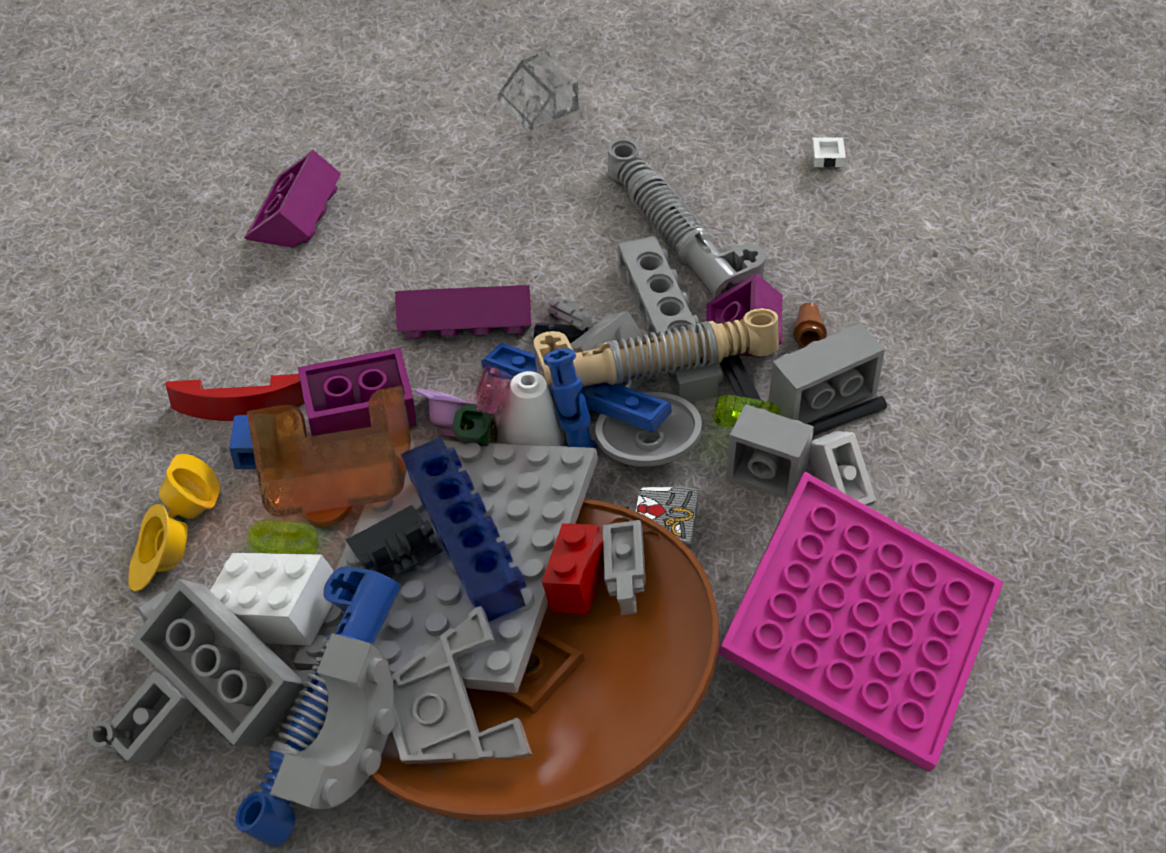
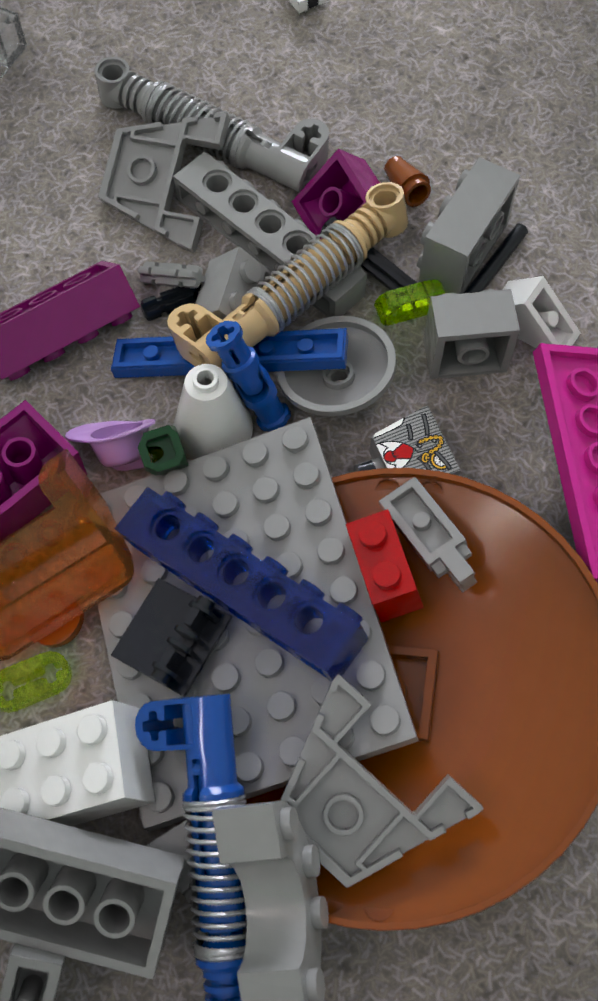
camera: 30 degrees left, 15 degrees up
(492, 390) = (157, 396): clear pink slope -> none
(597, 230) = (142, 170): none -> light grey wing

